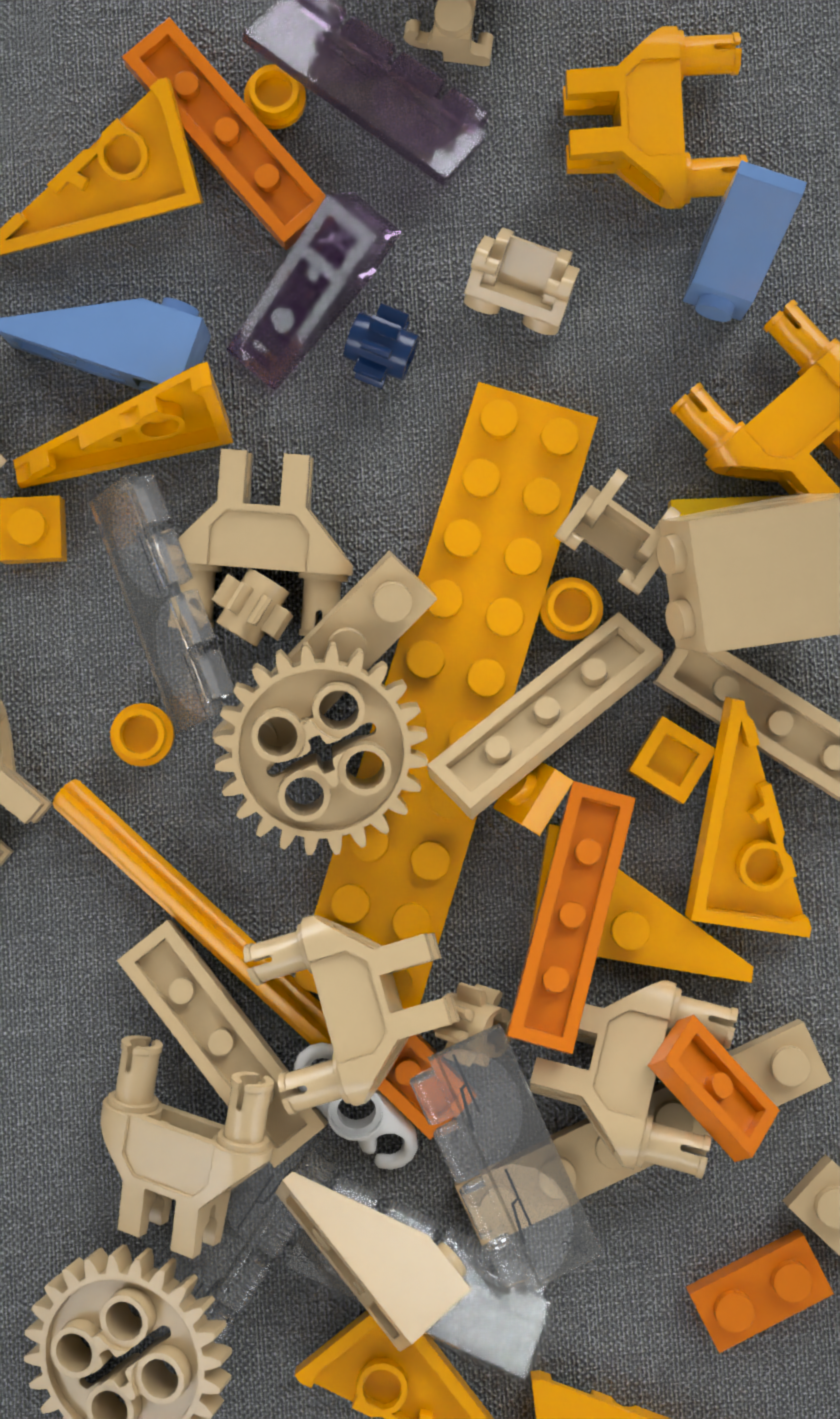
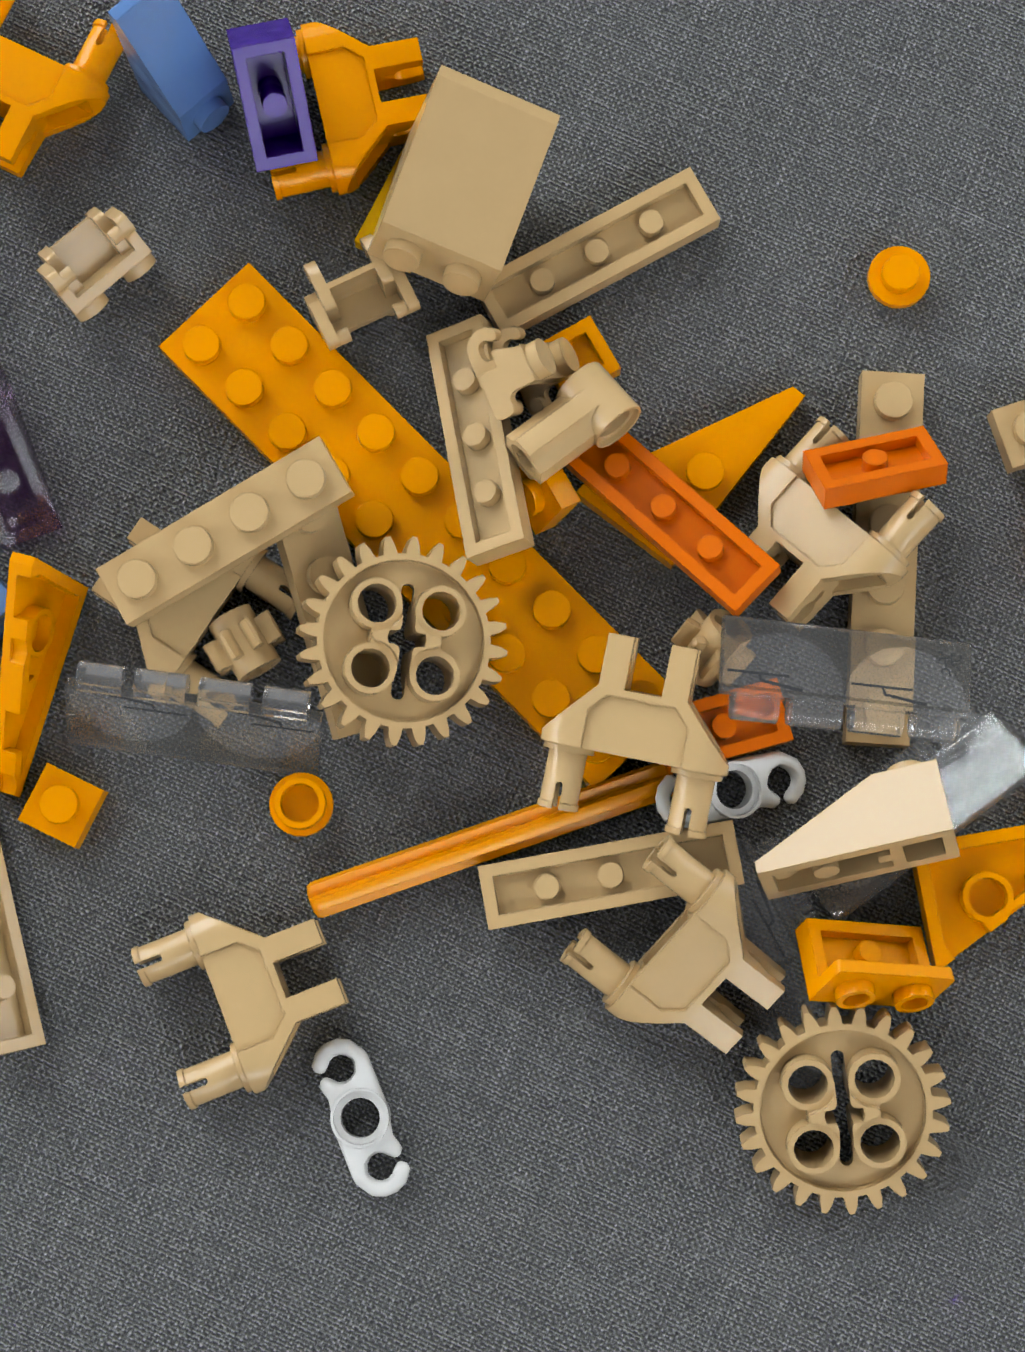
camera: 65 degrees left, 5 degrees down
(261, 1316) = (869, 965): none -> light orange bracket
(332, 538) = (225, 532): none -> tan plate
(381, 346) = (80, 409): dark blue gear -> none
(571, 609) = (401, 374): light orange plate -> none
(618, 800) = (586, 413): none -> tan piece
(623, 719) = (526, 368): none -> tan piece
(740, 859) = (690, 344): light orange wing -> none
(759, 351) = (272, 94): none -> dark purple brick

